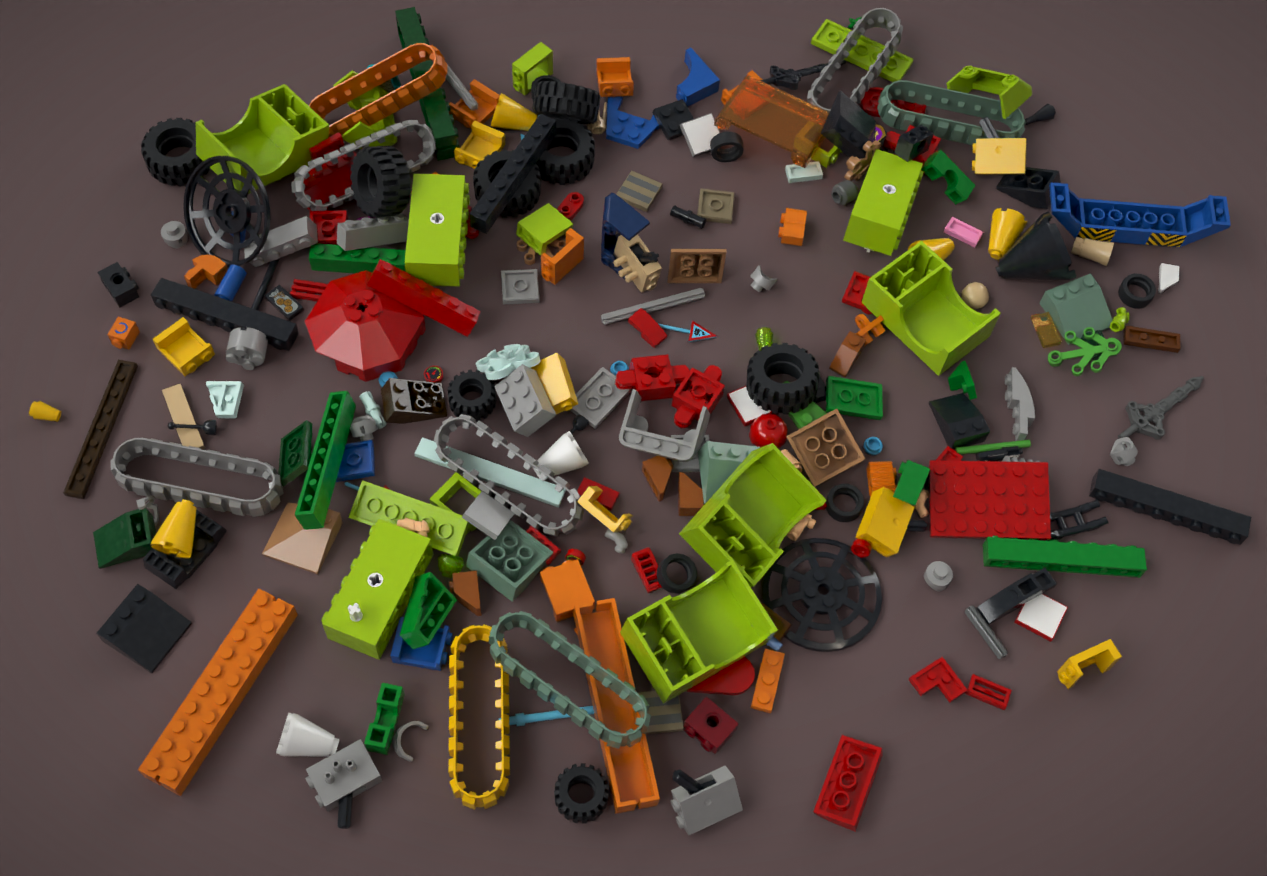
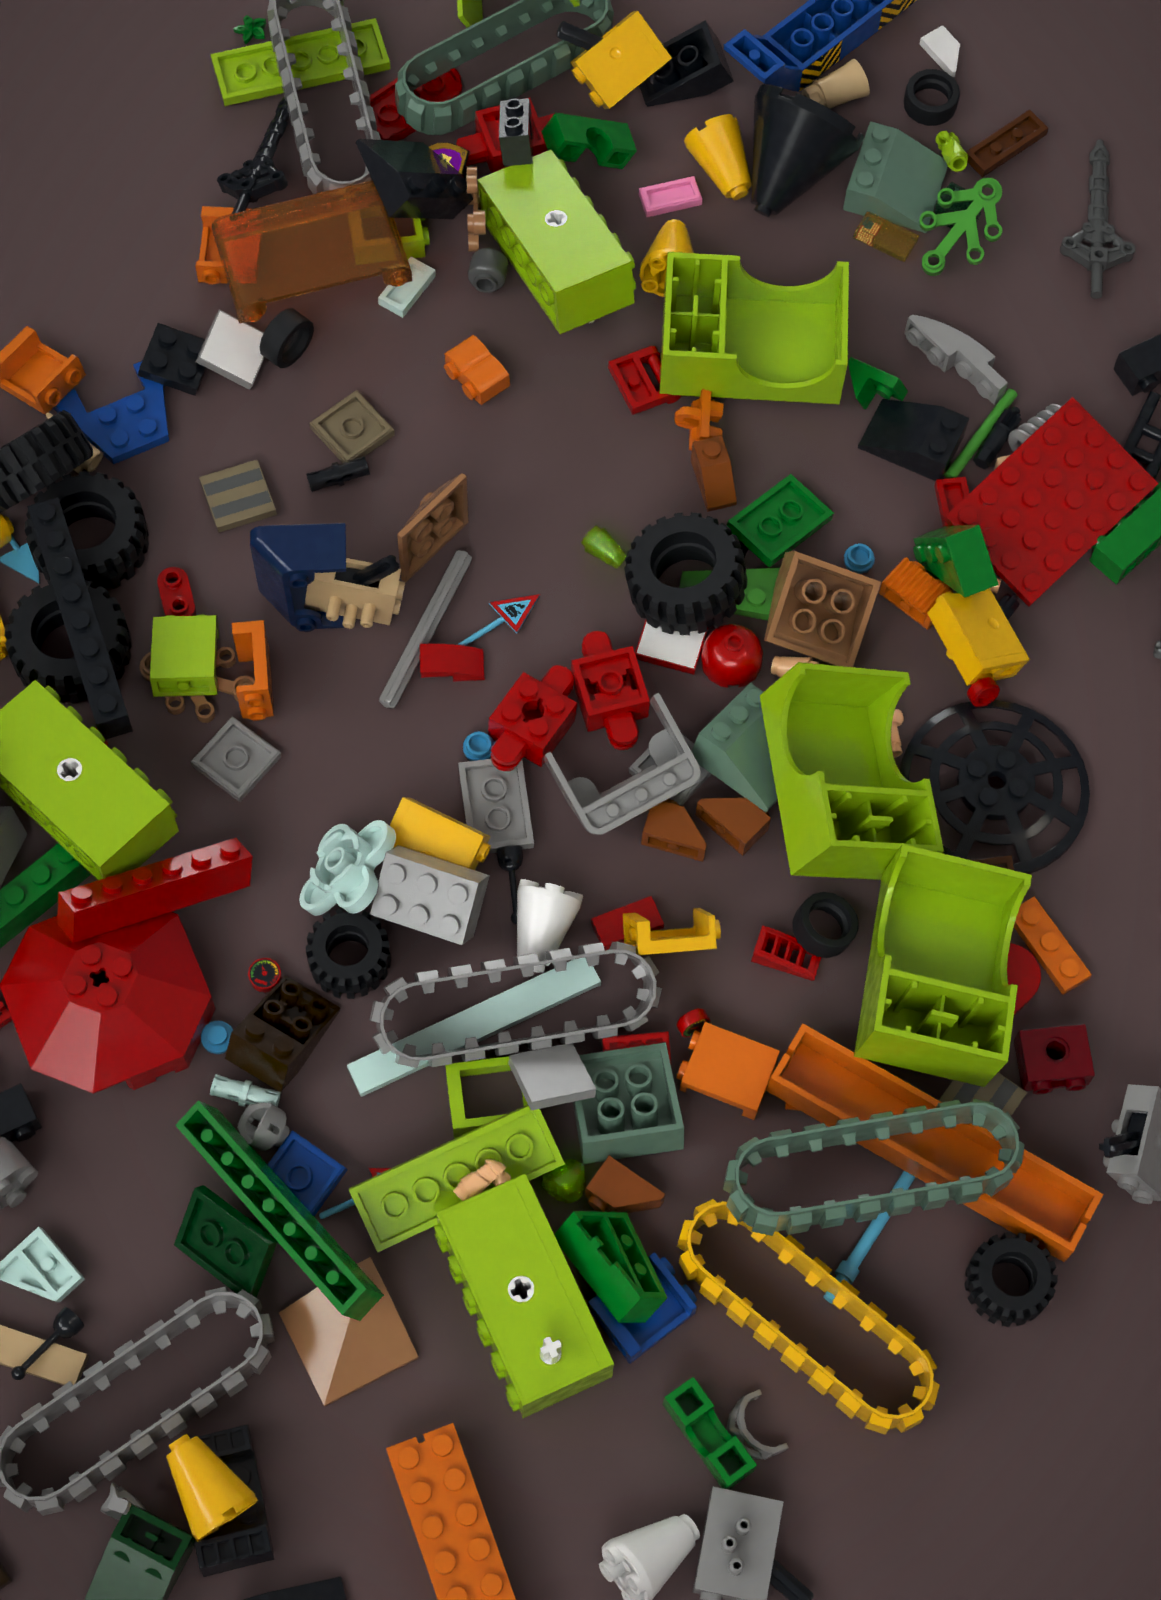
camera: 45 degrees left, 5 degrees up
(619, 539) = (723, 953): light grey arm -> none
(699, 83) = (147, 275): blue arch -> none
(761, 281) = (518, 474): light grey piece -> none
(849, 490) = (911, 636): black tyre -> none
(938, 575) = (1089, 642): light grey piece -> none
(975, 295) = (770, 264): tan hair -> none
(1123, 455) = (1120, 312): light grey piece -> none

